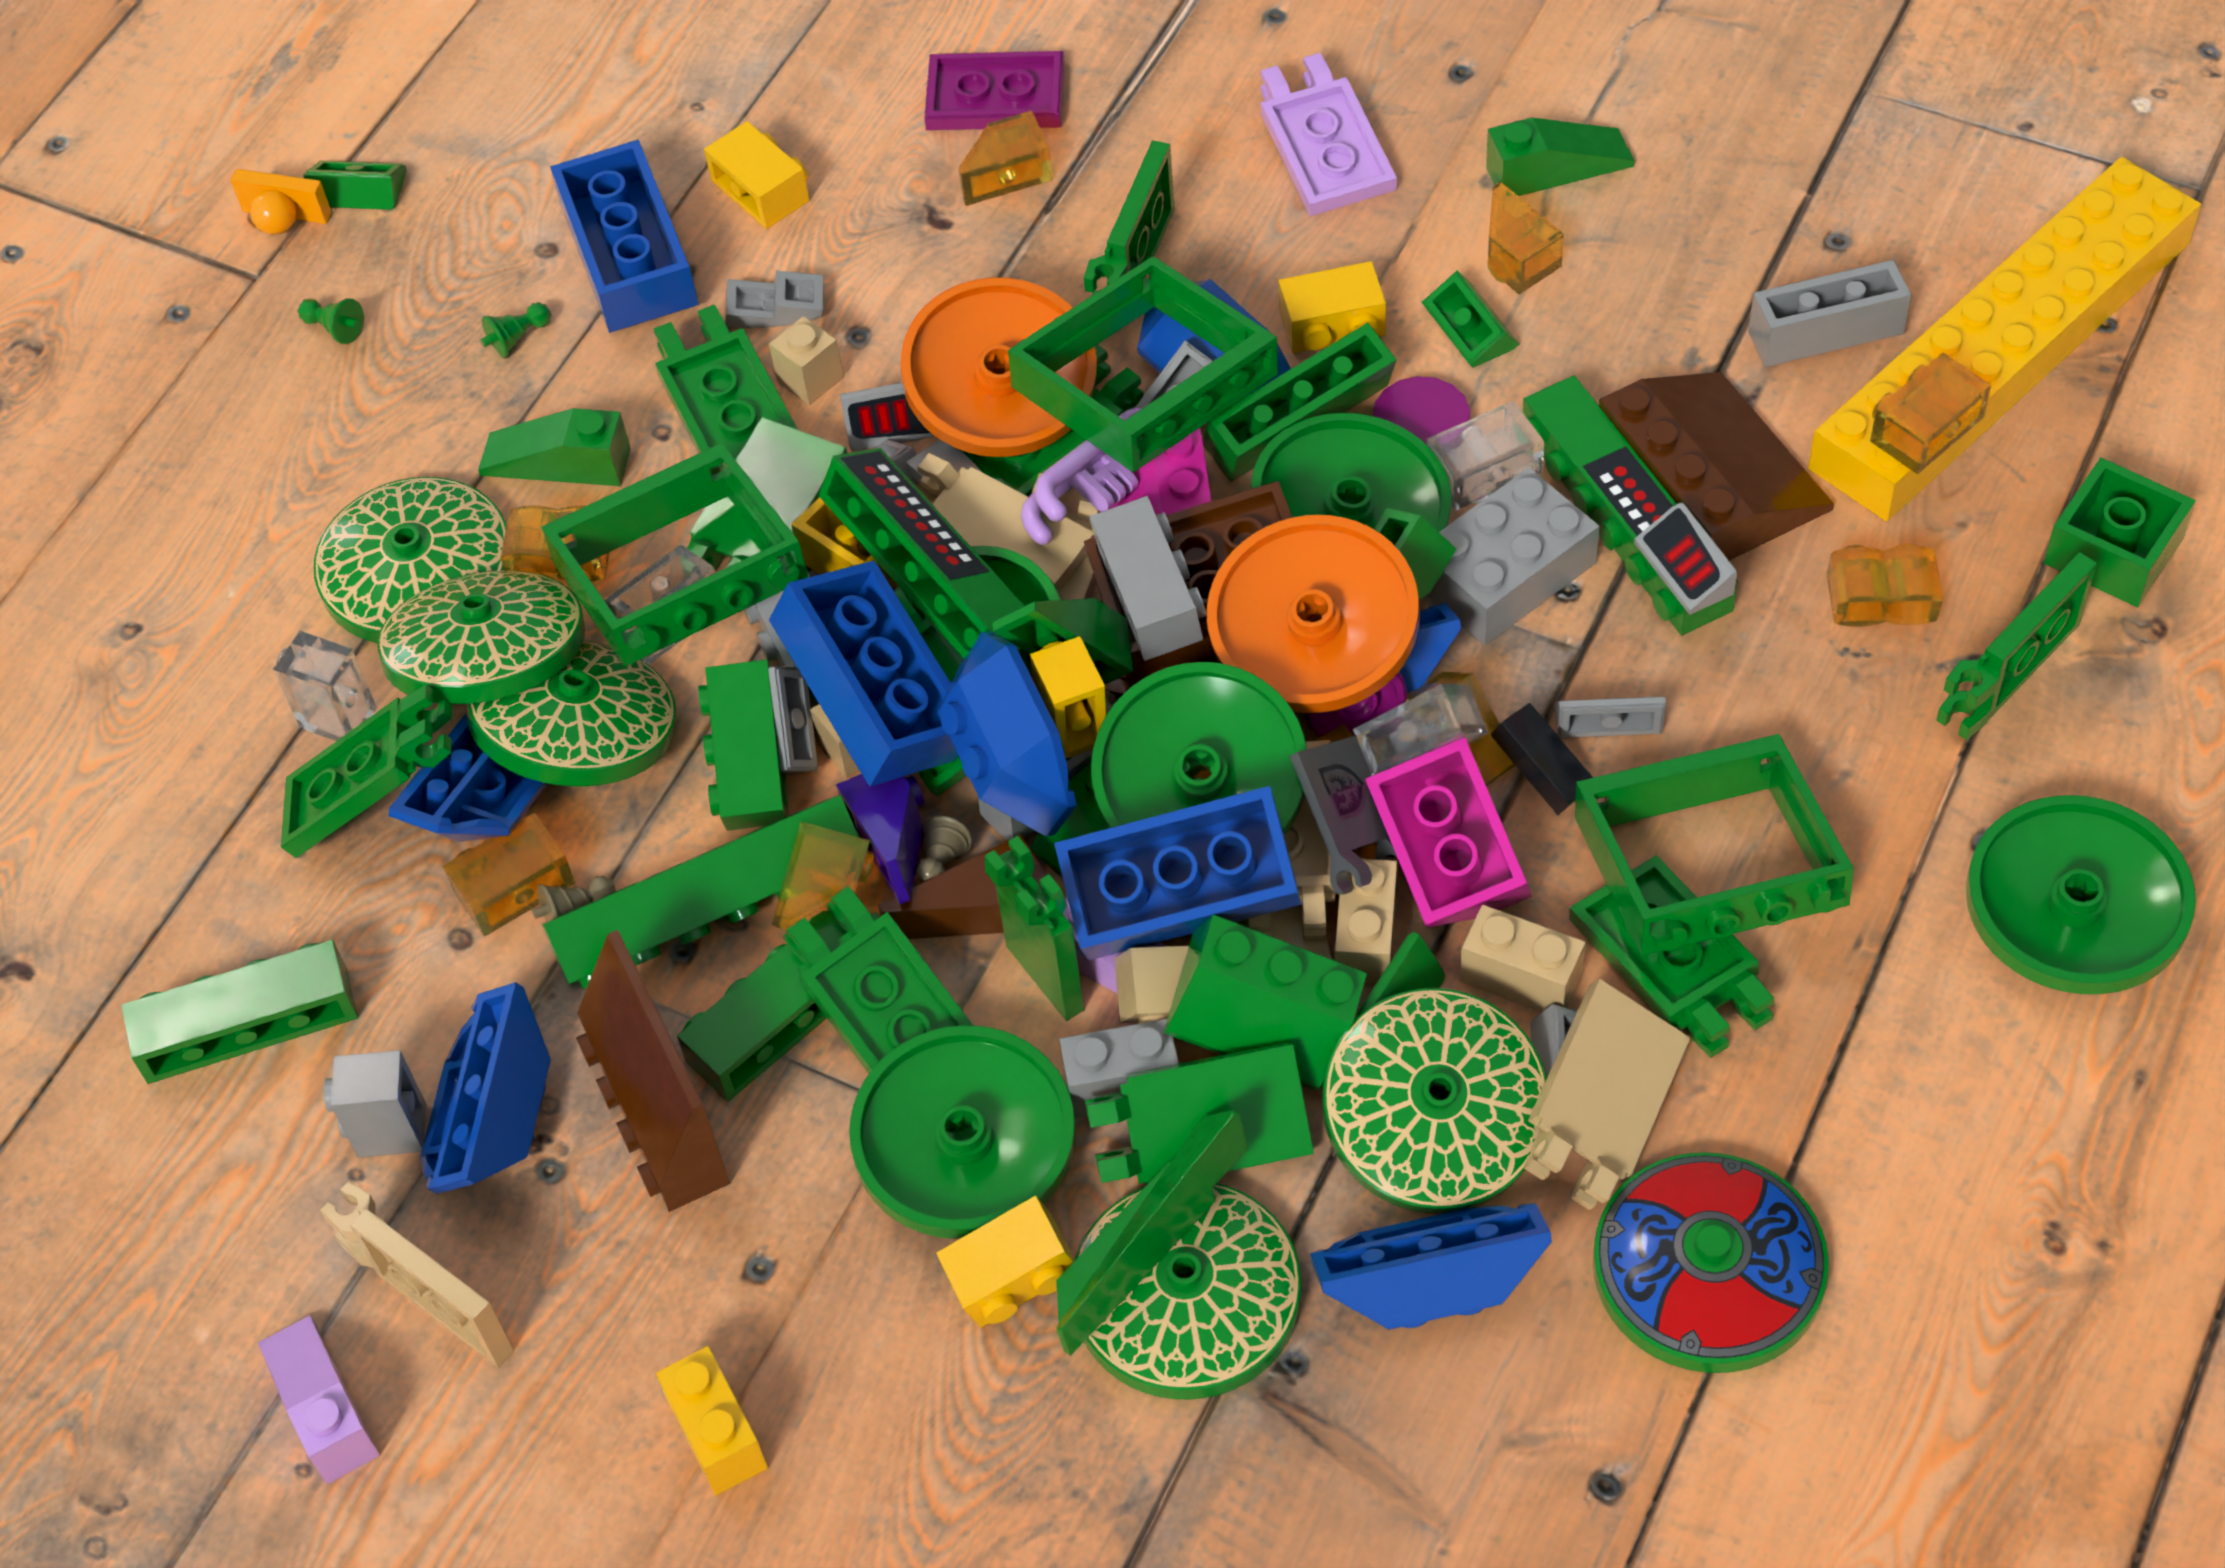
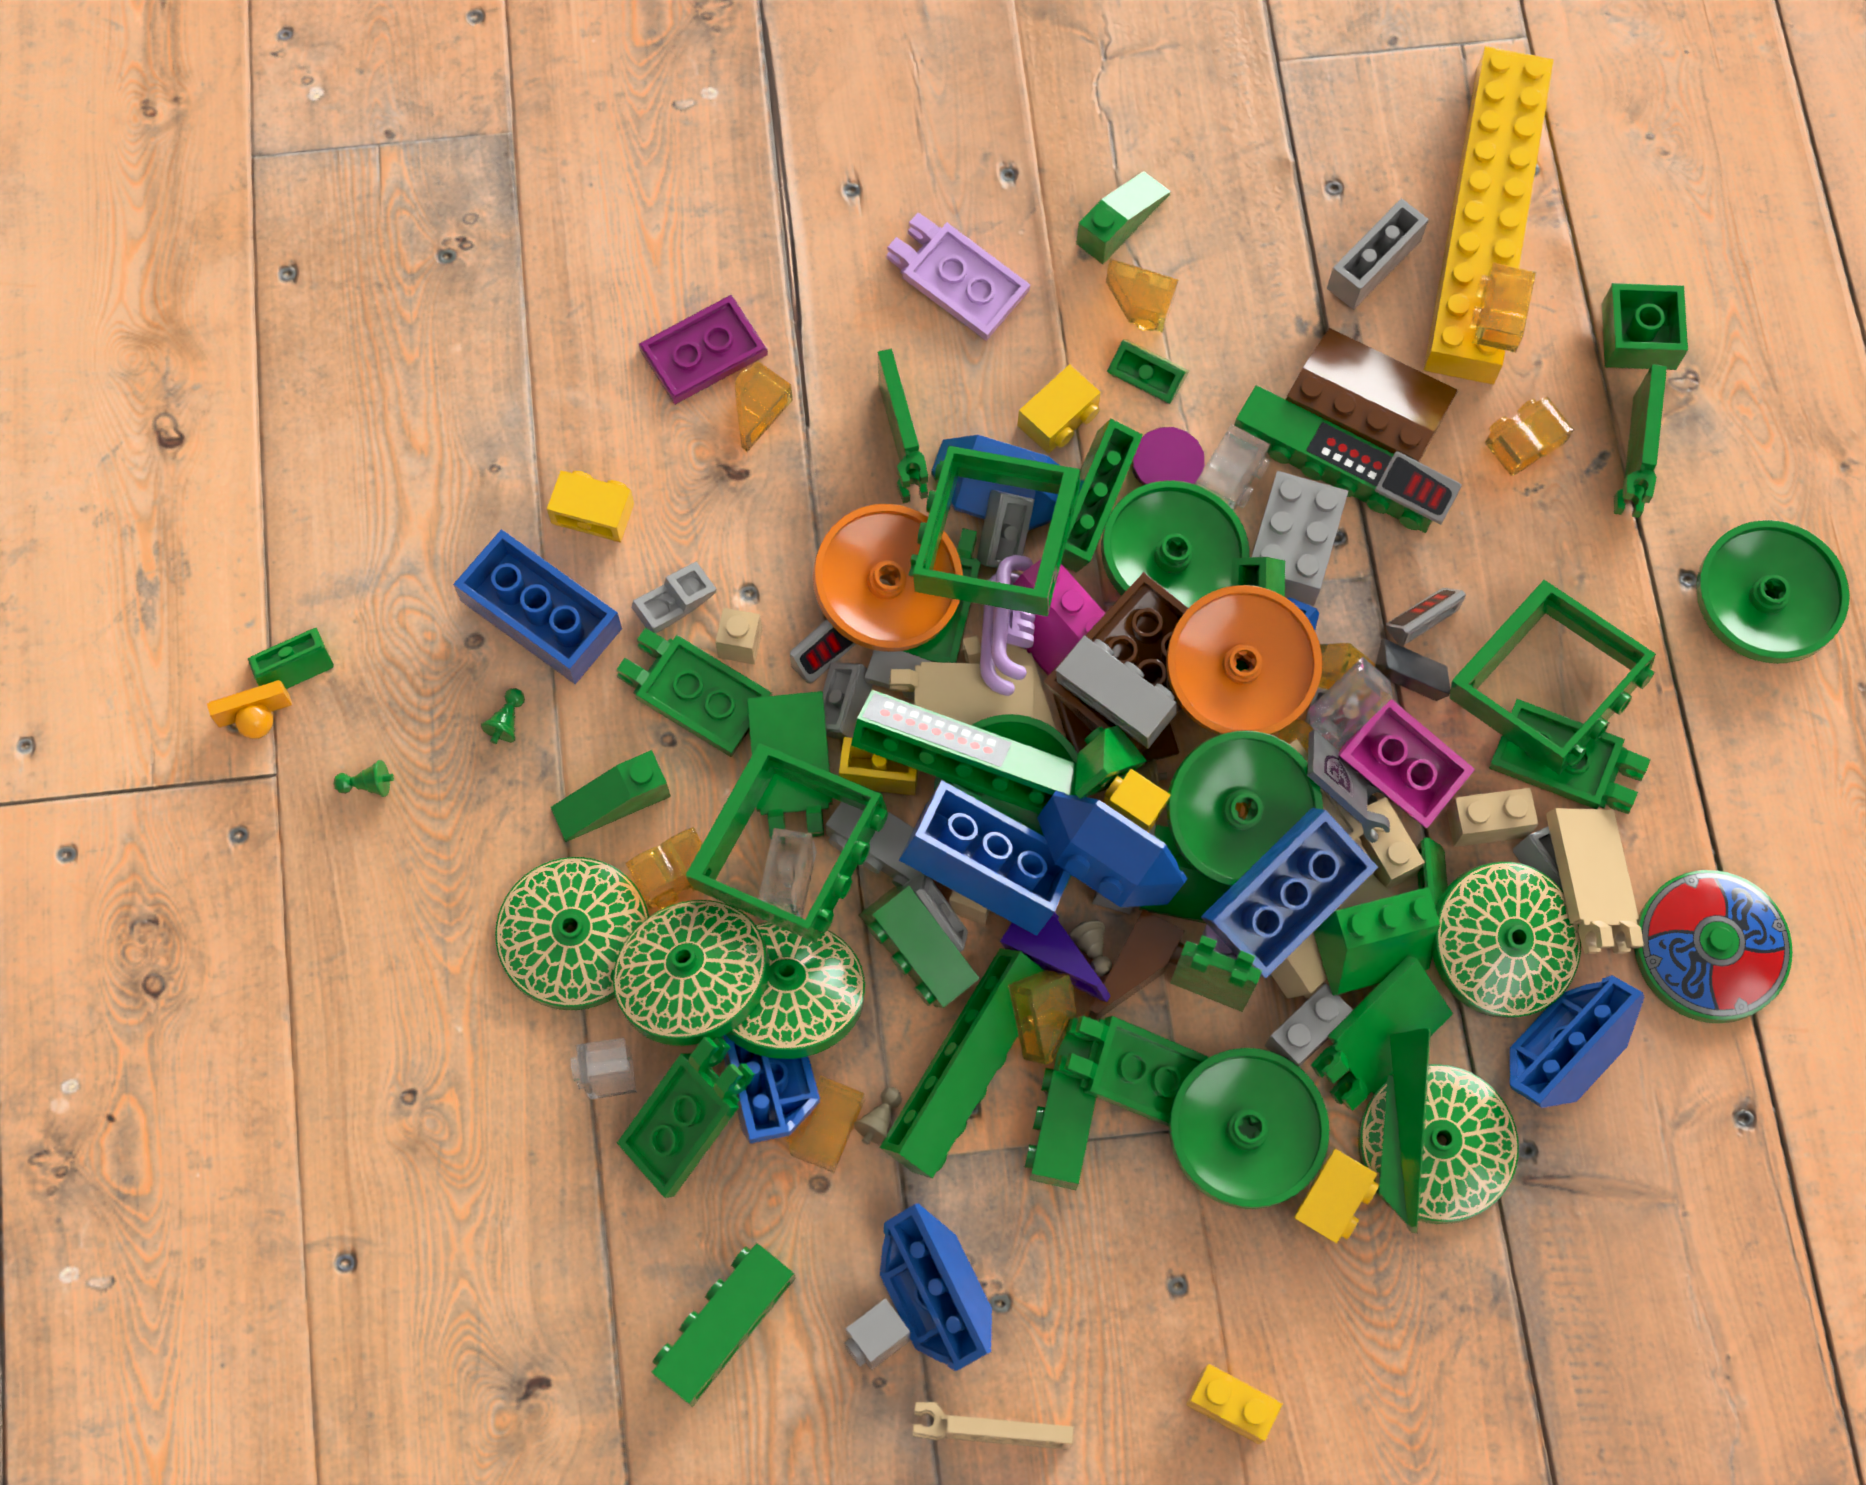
camera: 40 degrees left, 15 degrees up
(647, 1082) = (1039, 1214): reddish brown slope -> none

